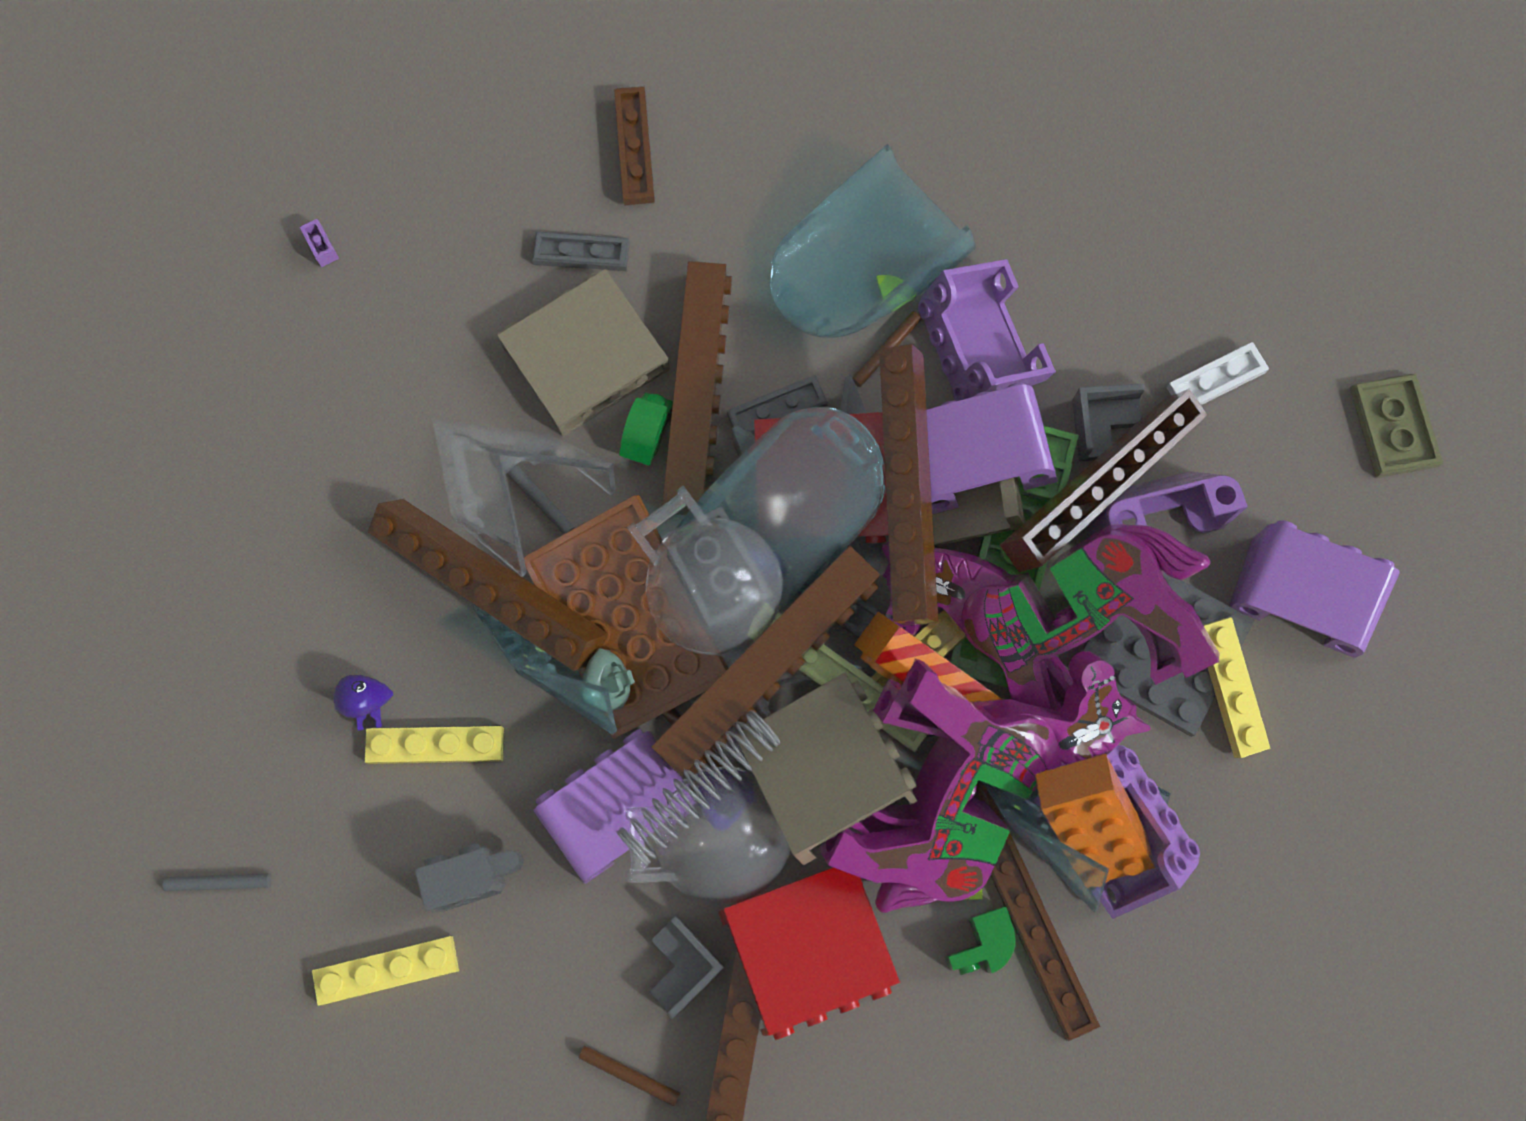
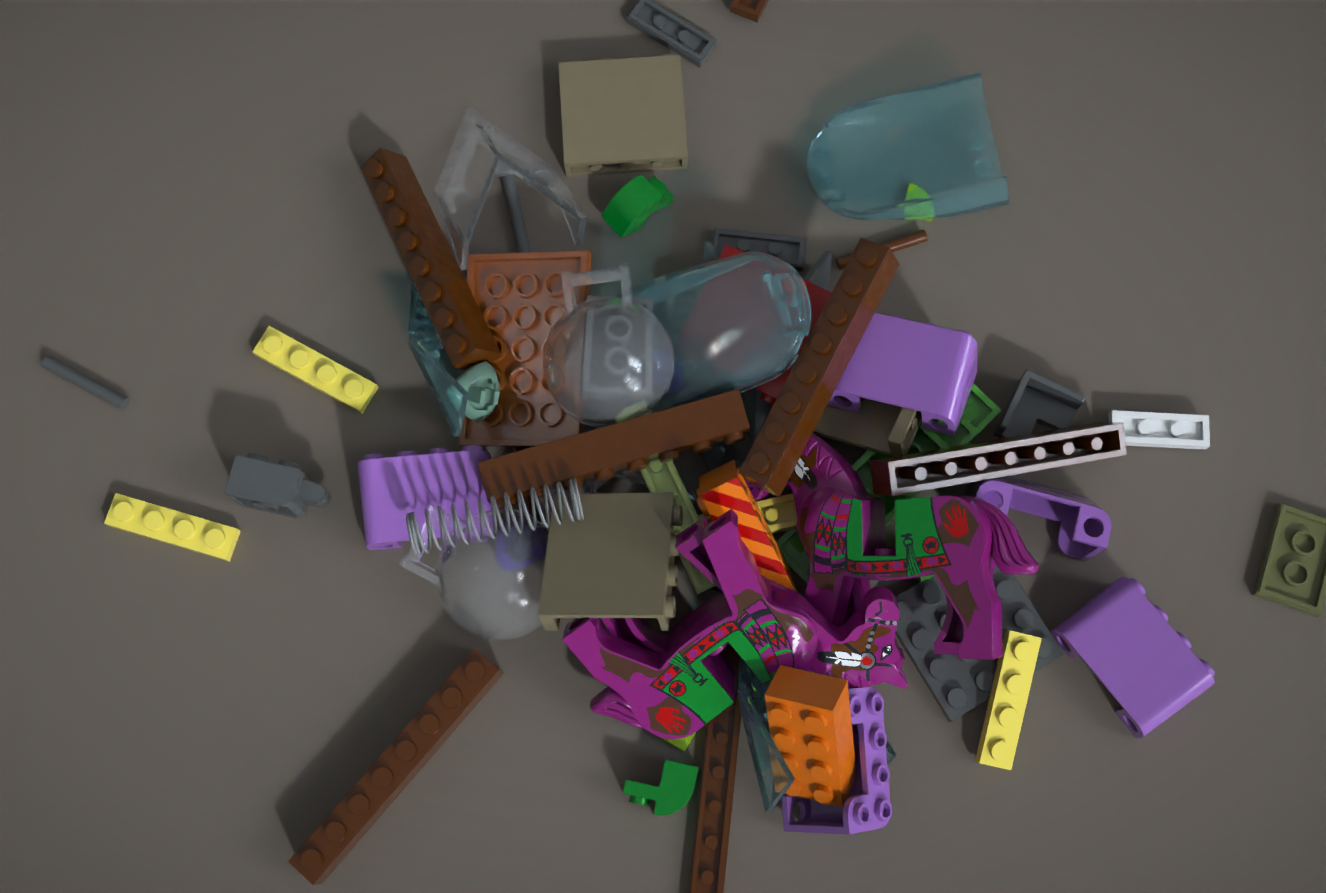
camera: 30 degrees right, 0 degrees up
(359, 696) = (279, 296): dark purple piece -> none
(629, 1075) = (312, 723): reddish brown bar -> none
(692, 966) = (415, 666): dark grey panel -> none
(696, 381) = (704, 187): reddish brown brick -> none
(810, 950) = (514, 706): red panel -> none
(976, 333) = (969, 275): medium lavender windscreen -> none

